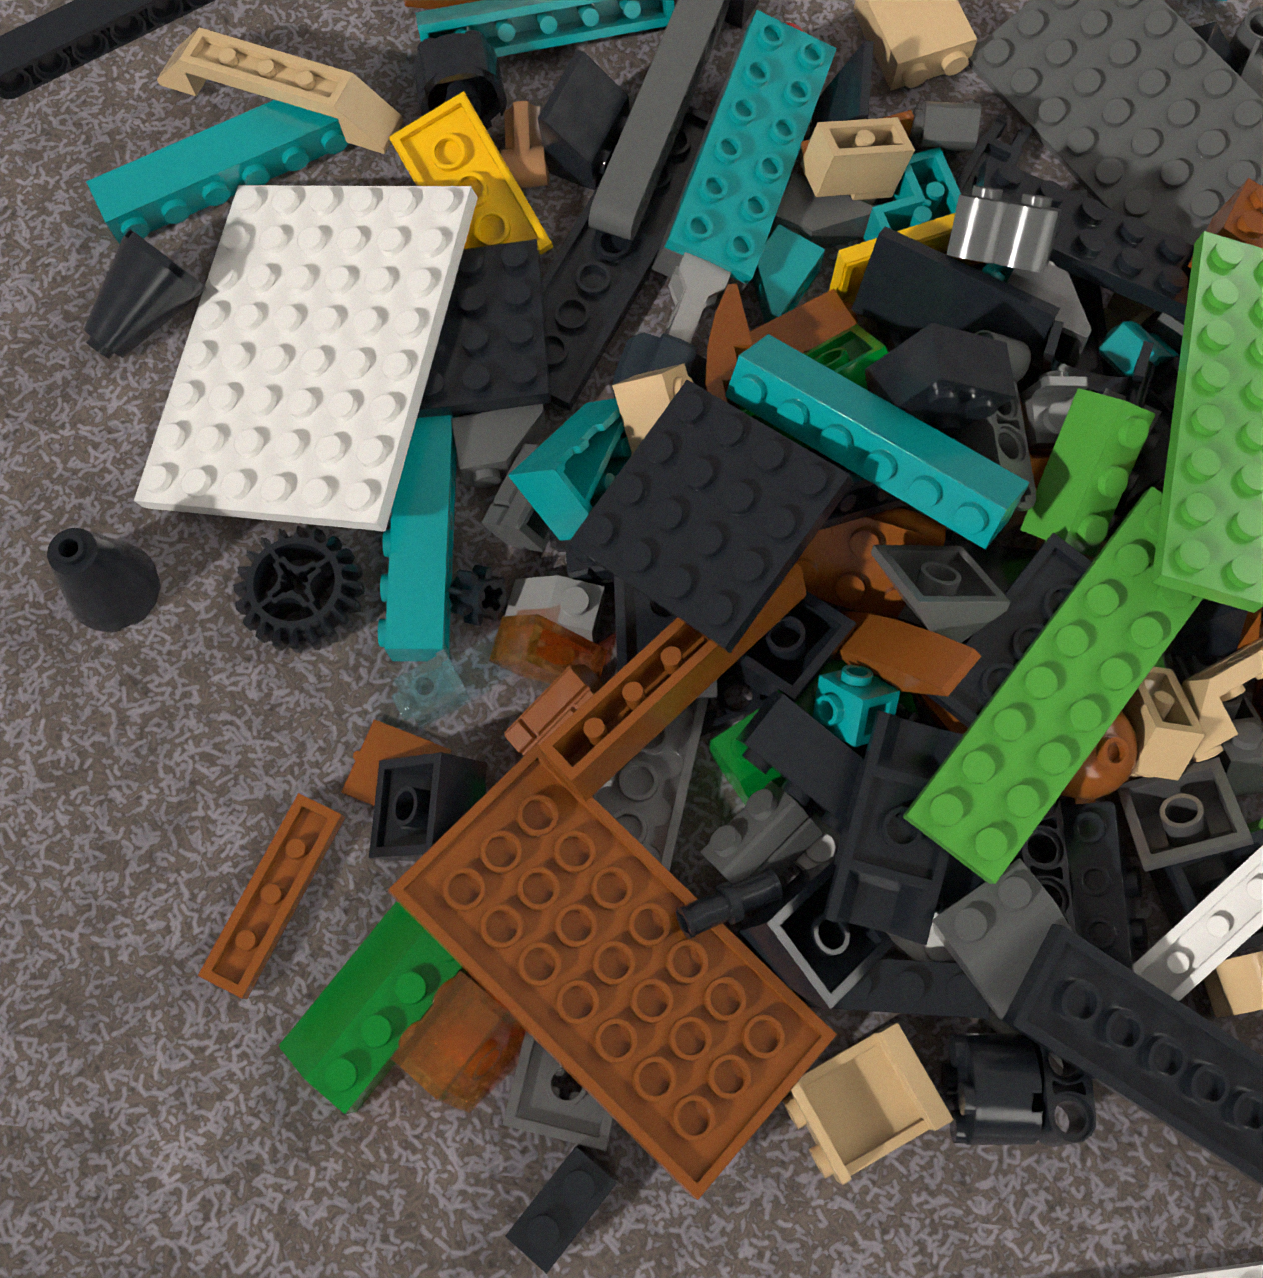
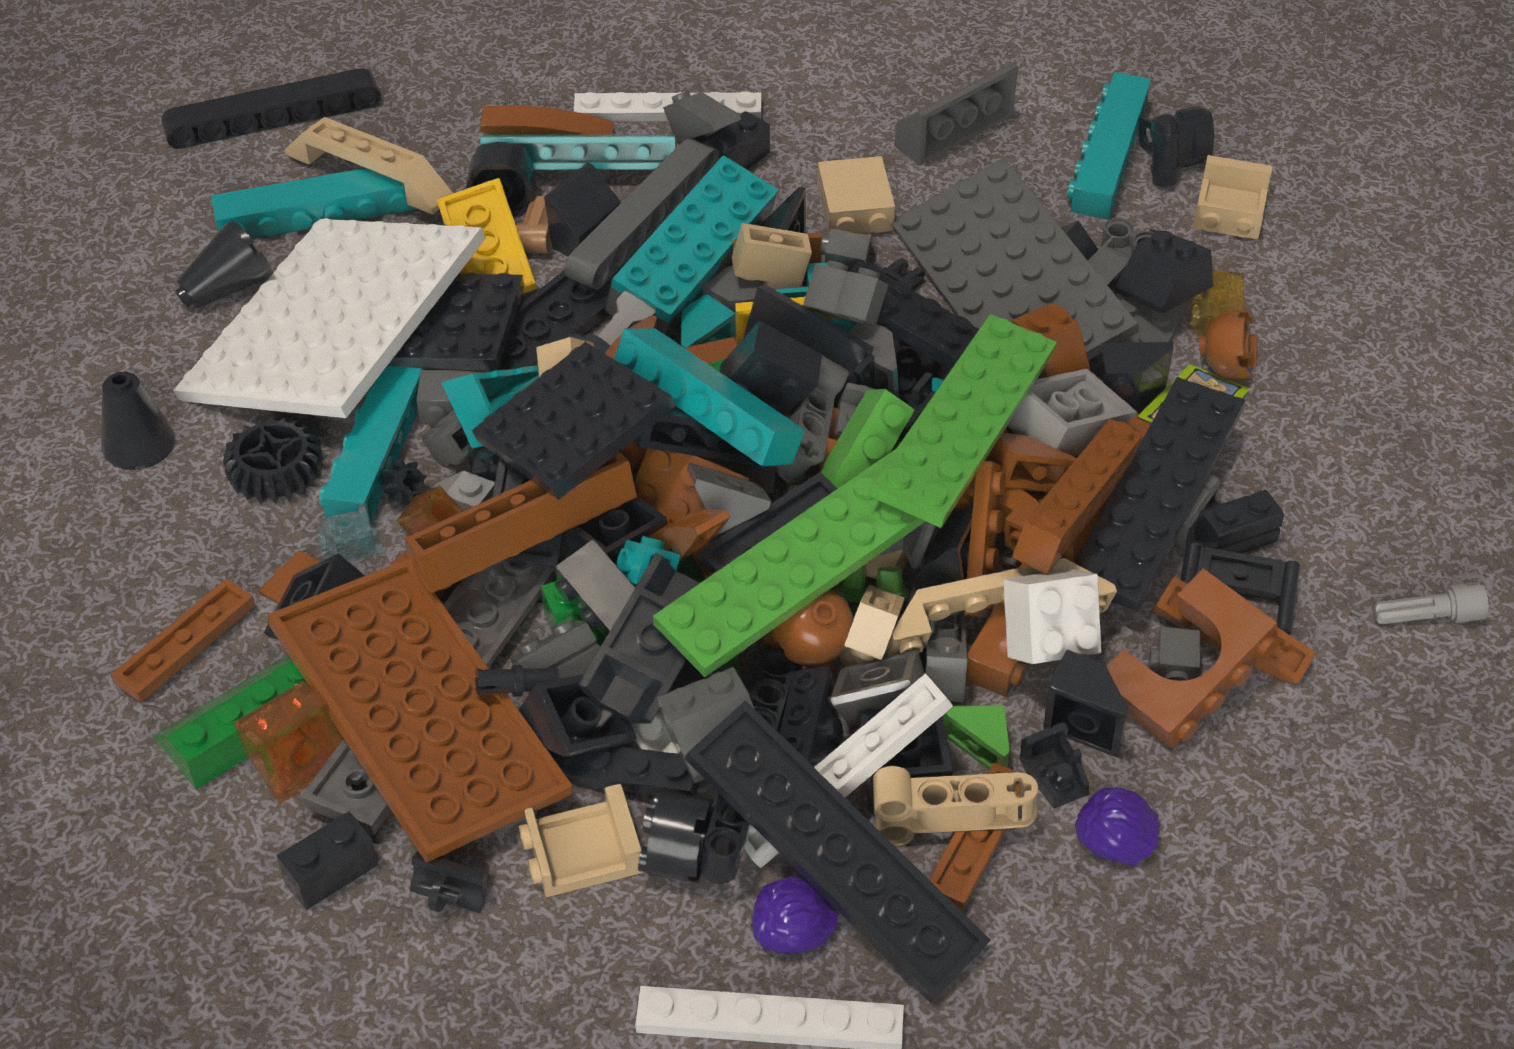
camera: 10 degrees right, 25 degrees down
(742, 1202) = (450, 882): none -> black hips
(1151, 1165) = (792, 917): none -> dark purple hair

